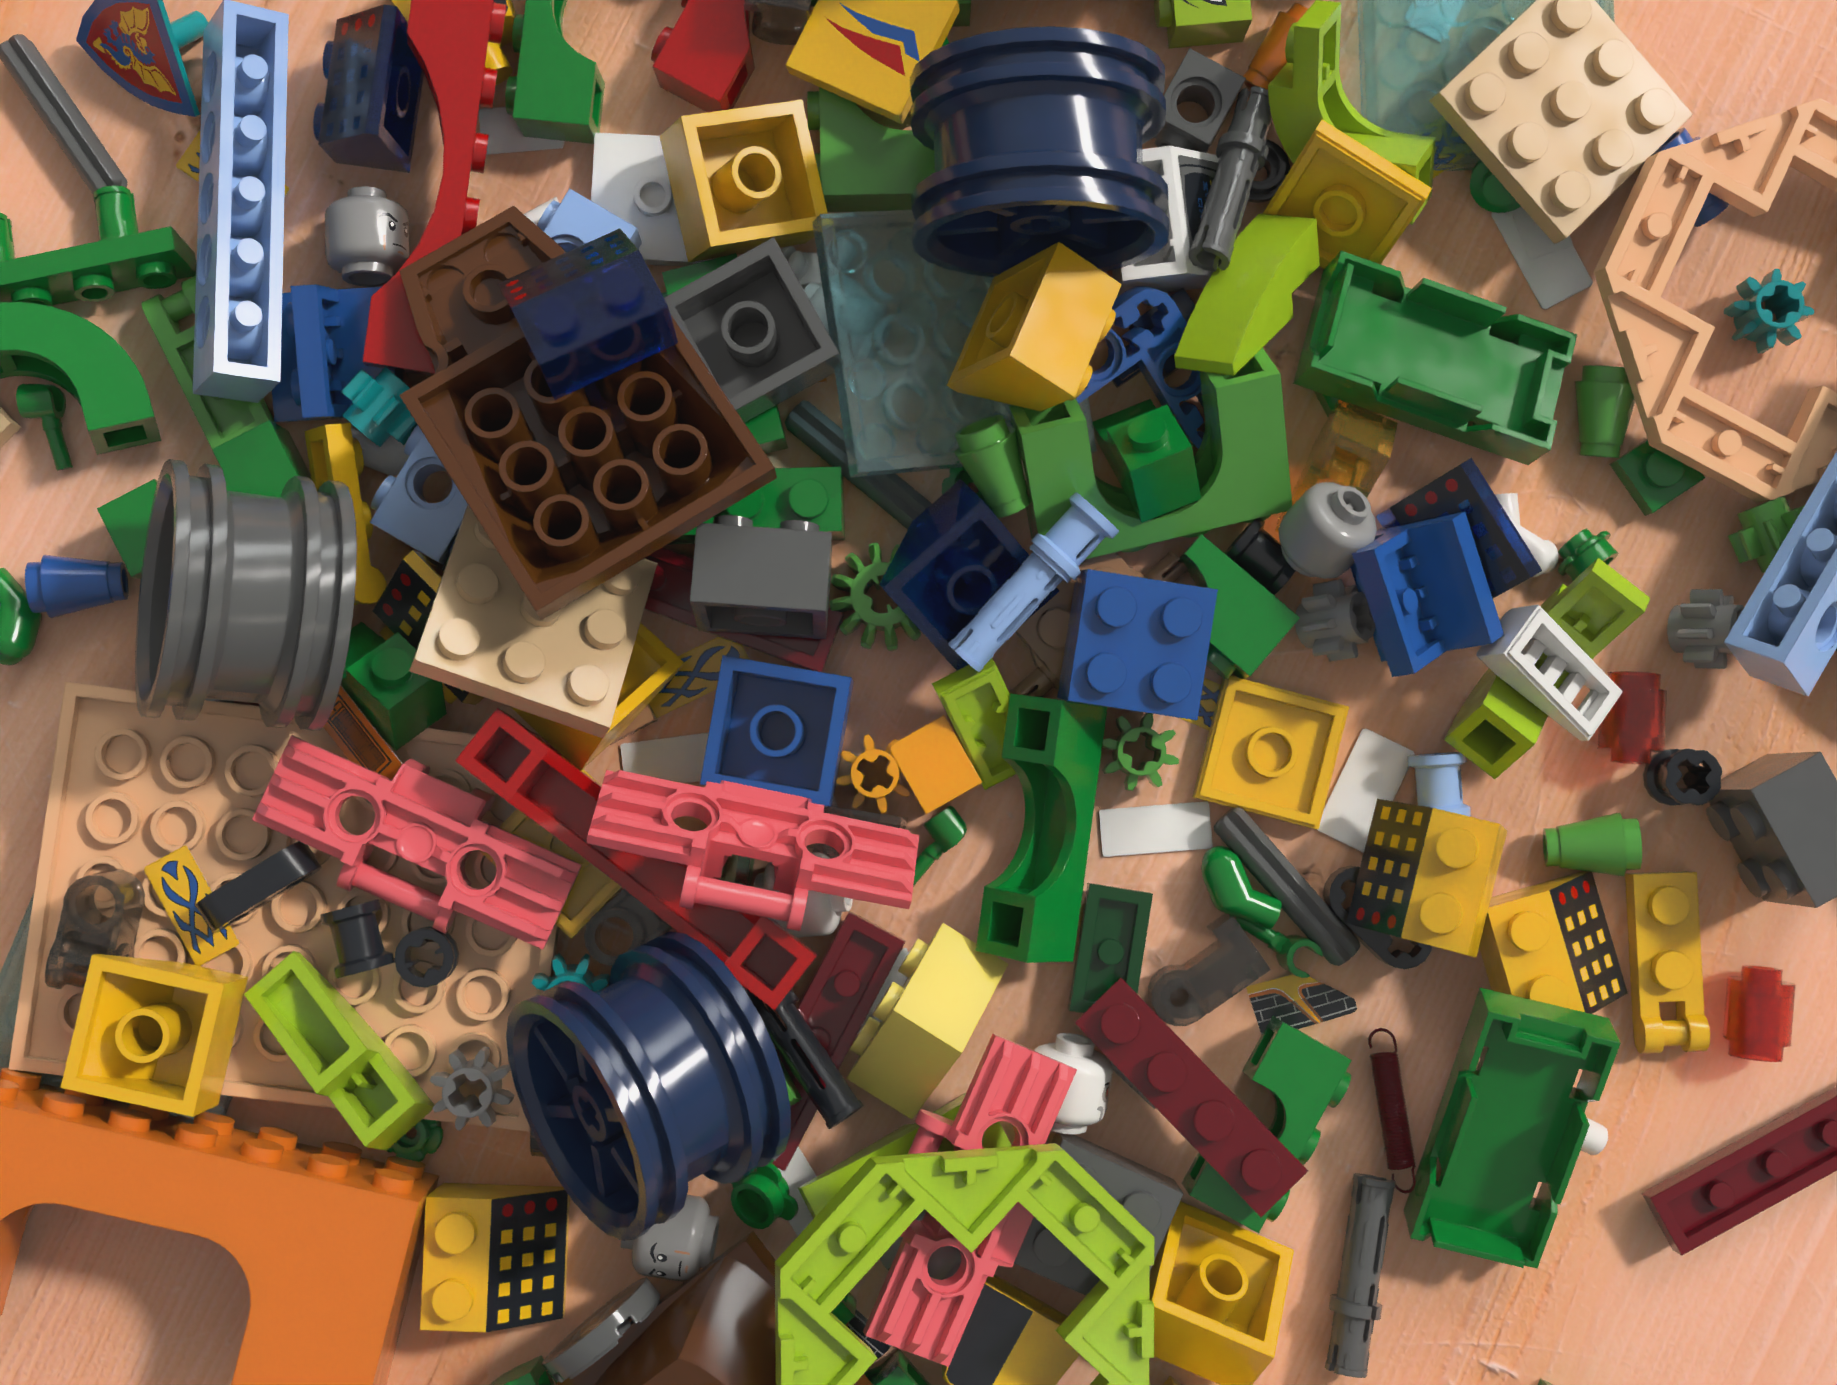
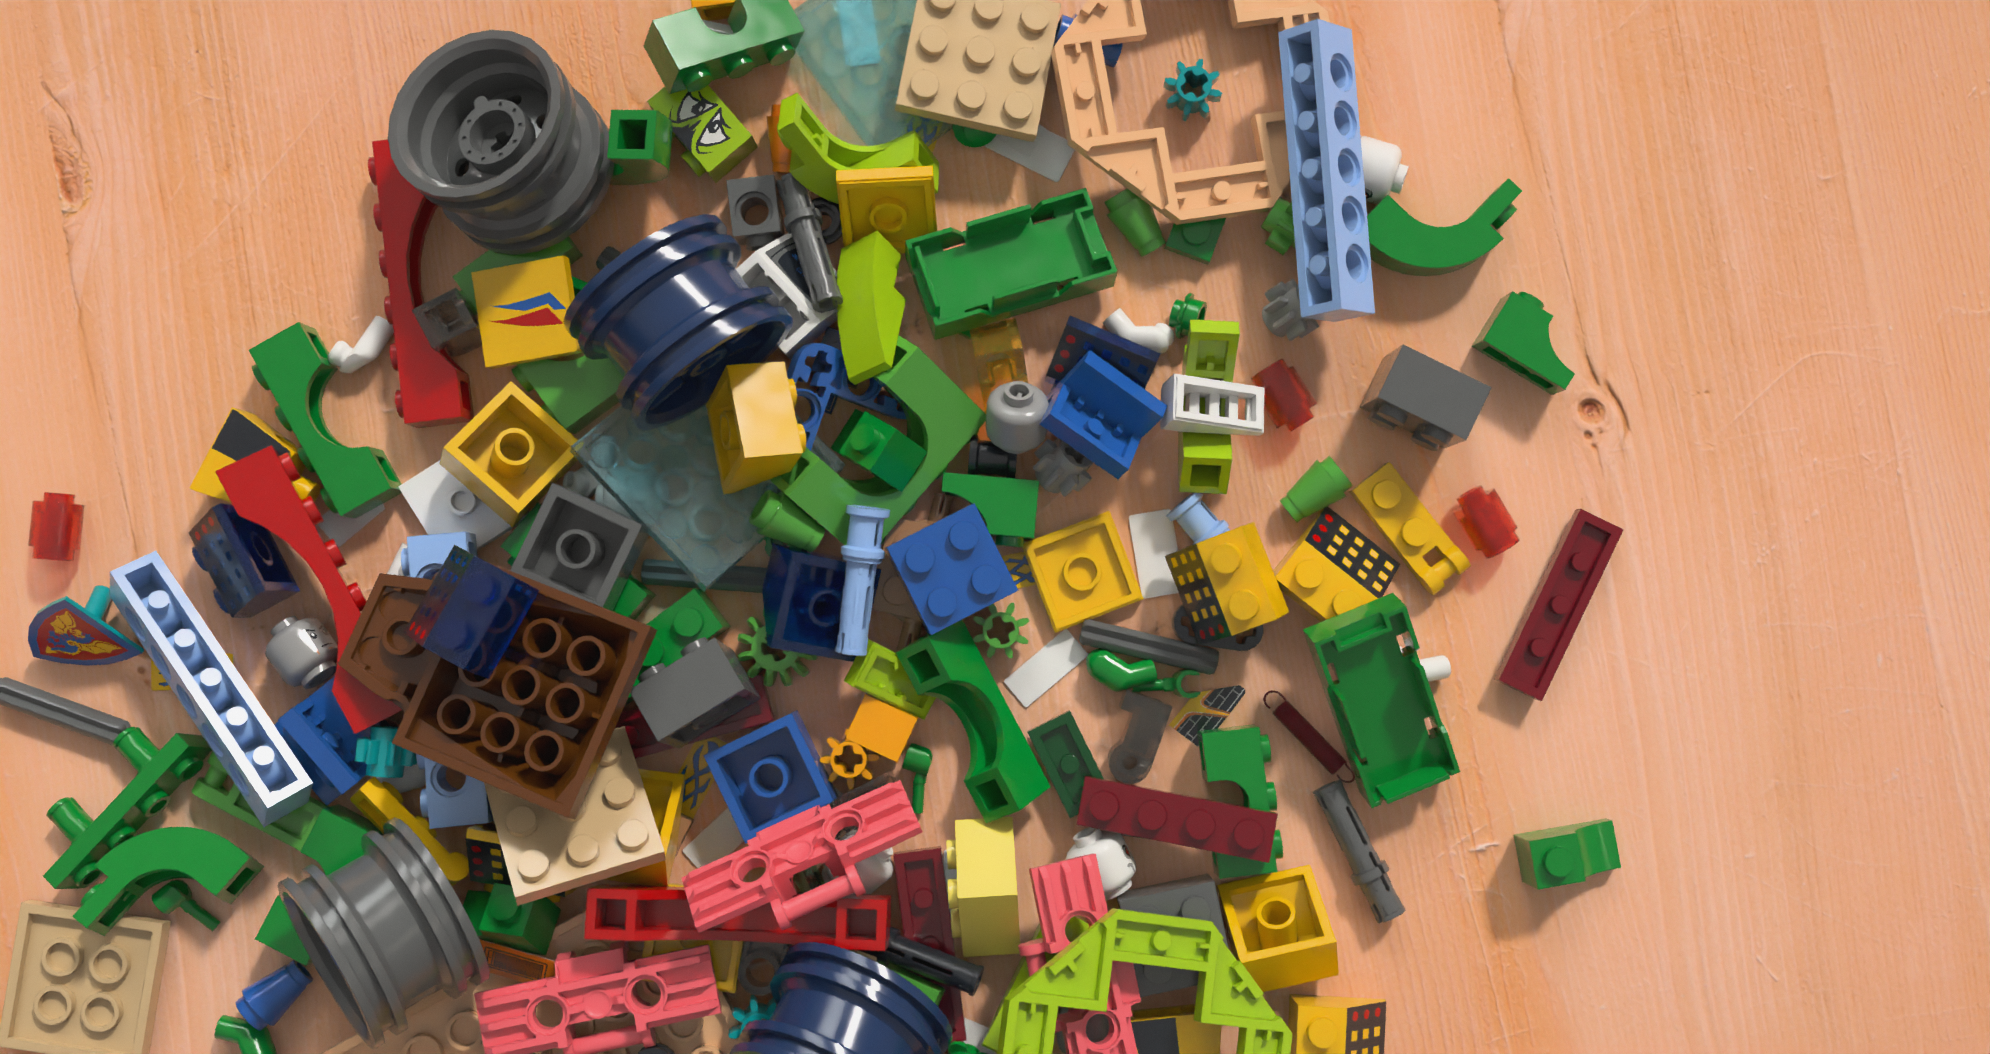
camera: 35 degrees left, 0 degrees up
(1701, 781) = (1351, 403): black bush -> none

